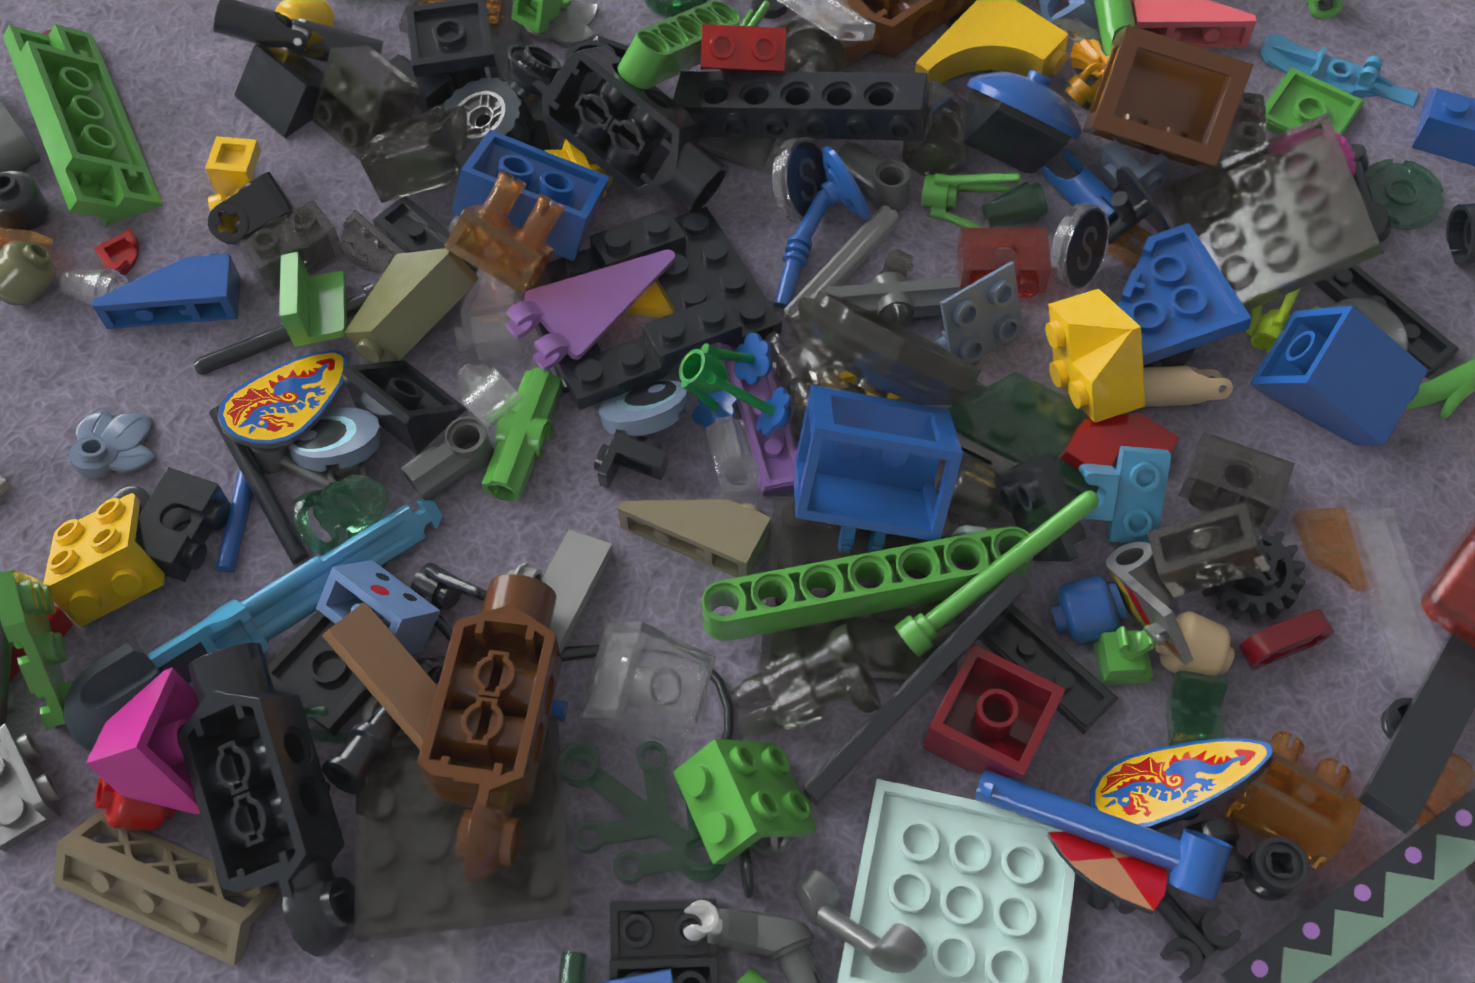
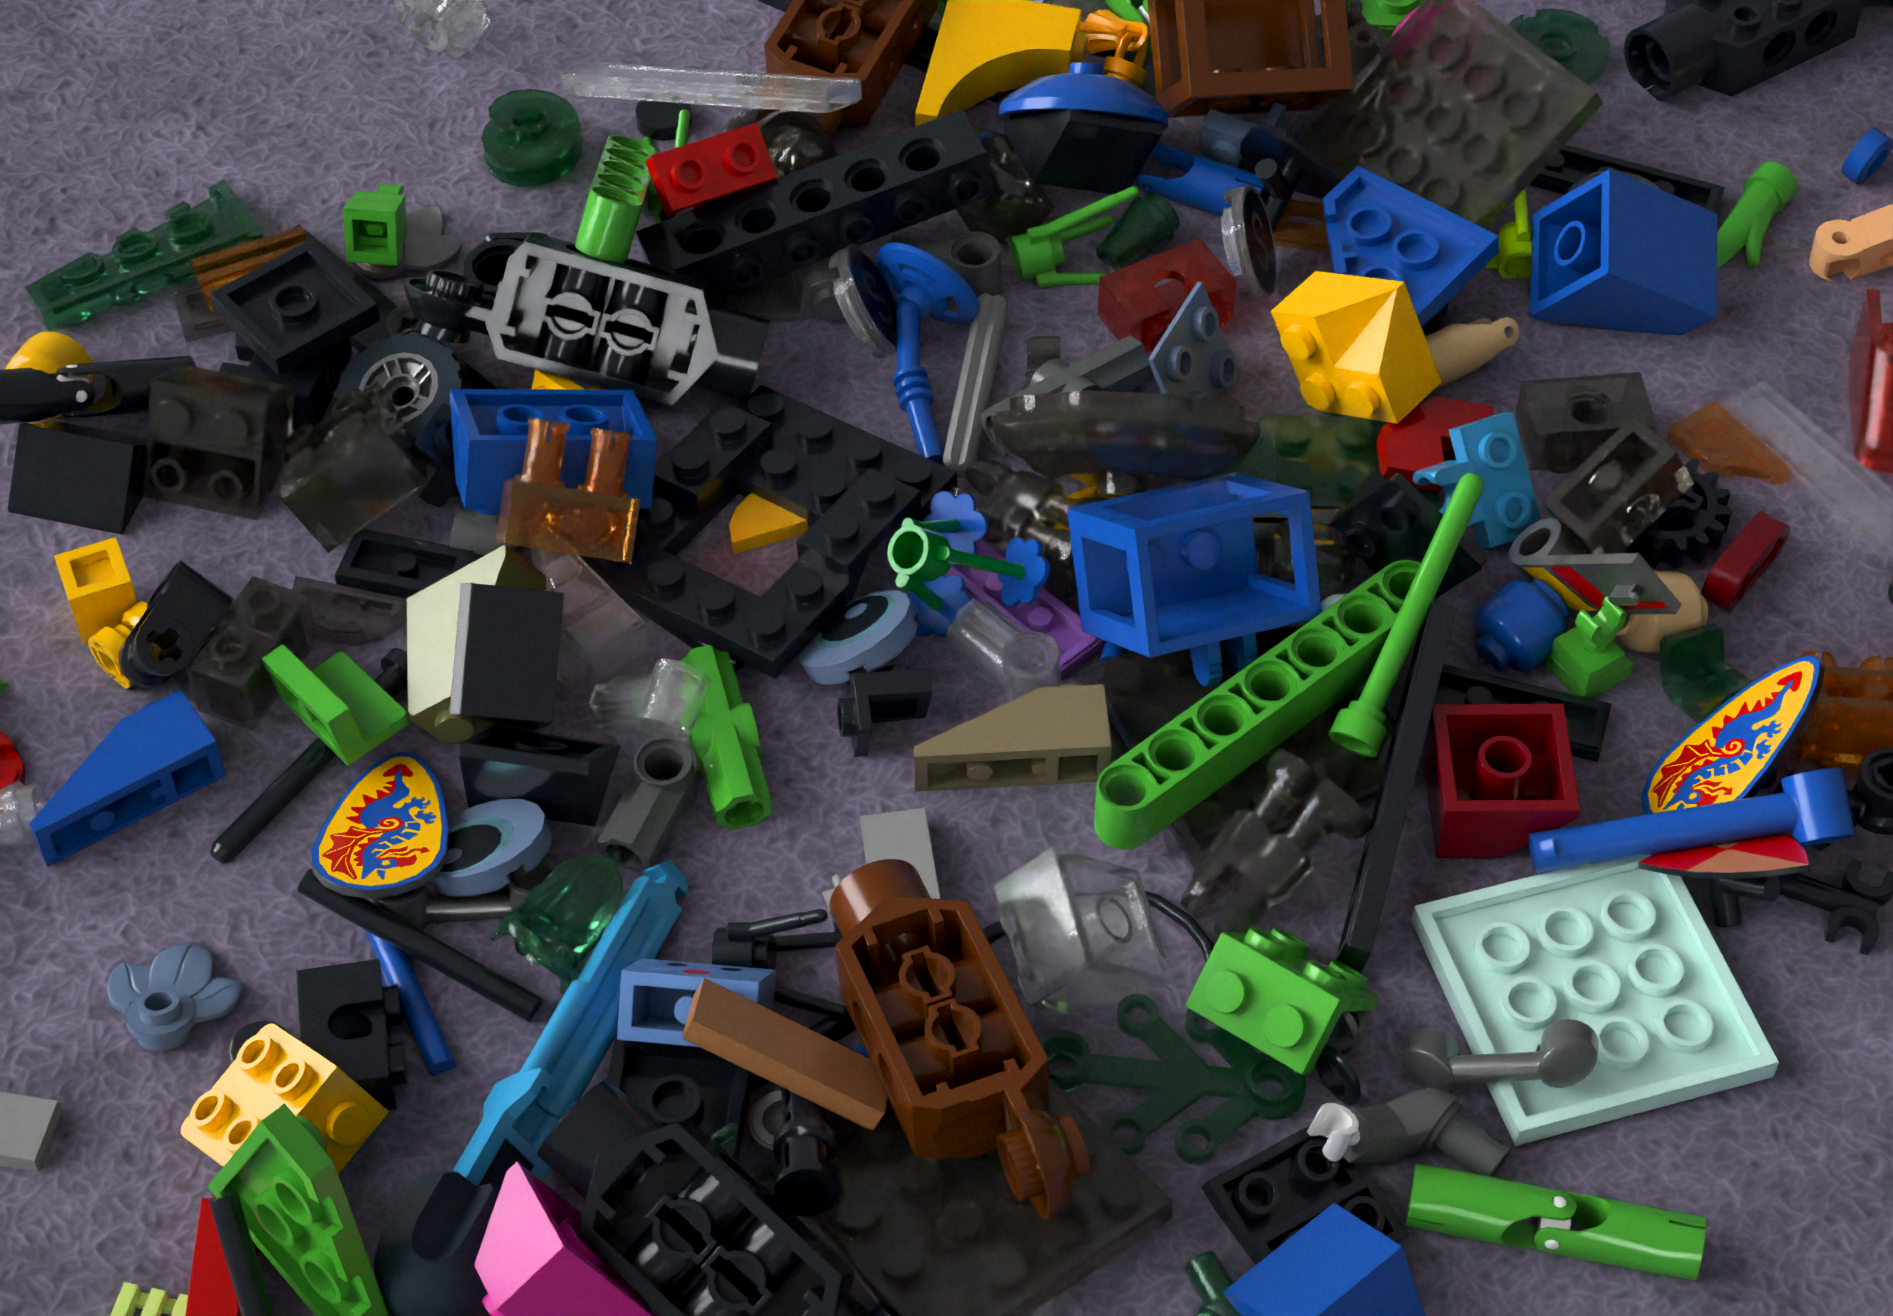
camera: 30 degrees left, 10 degrees down
(410, 321) = (506, 655): none -> black slope
(583, 306) = (706, 552): medium lavender flag -> none

